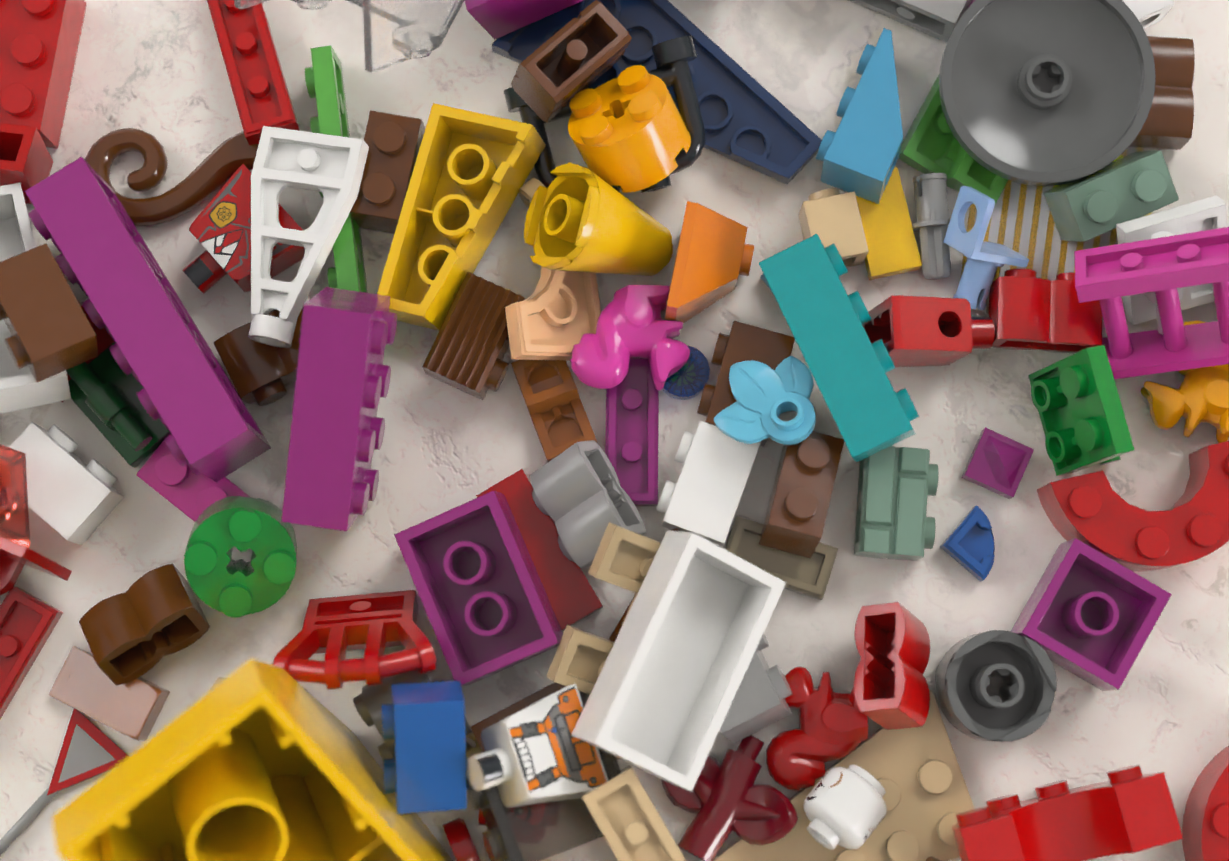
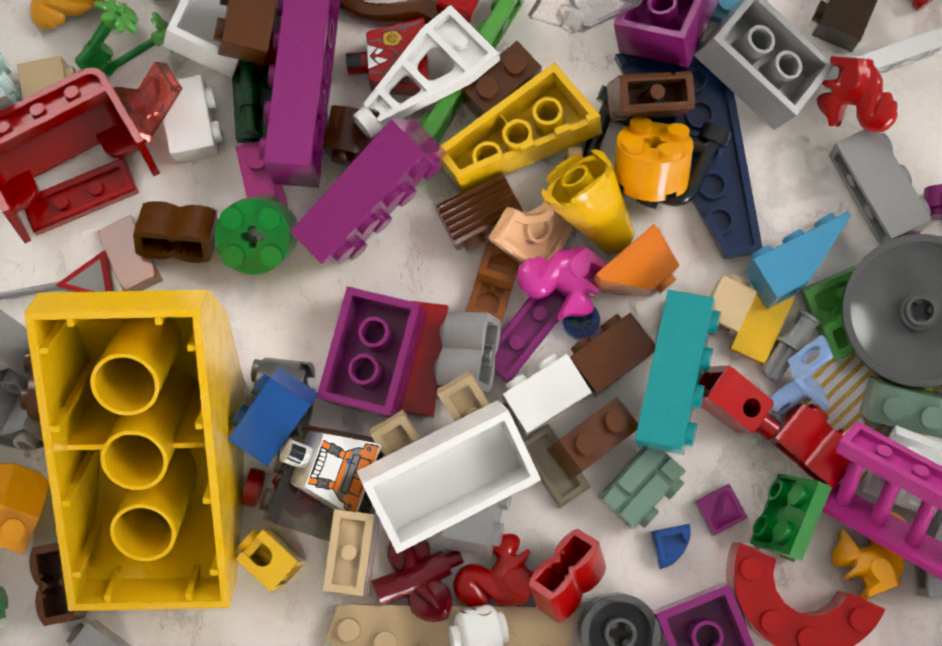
camera: 40 degrees right, 0 degrees up
(358, 623) = (290, 320): red plate -> none
(765, 395) = (613, 367): medium azure plate -> none

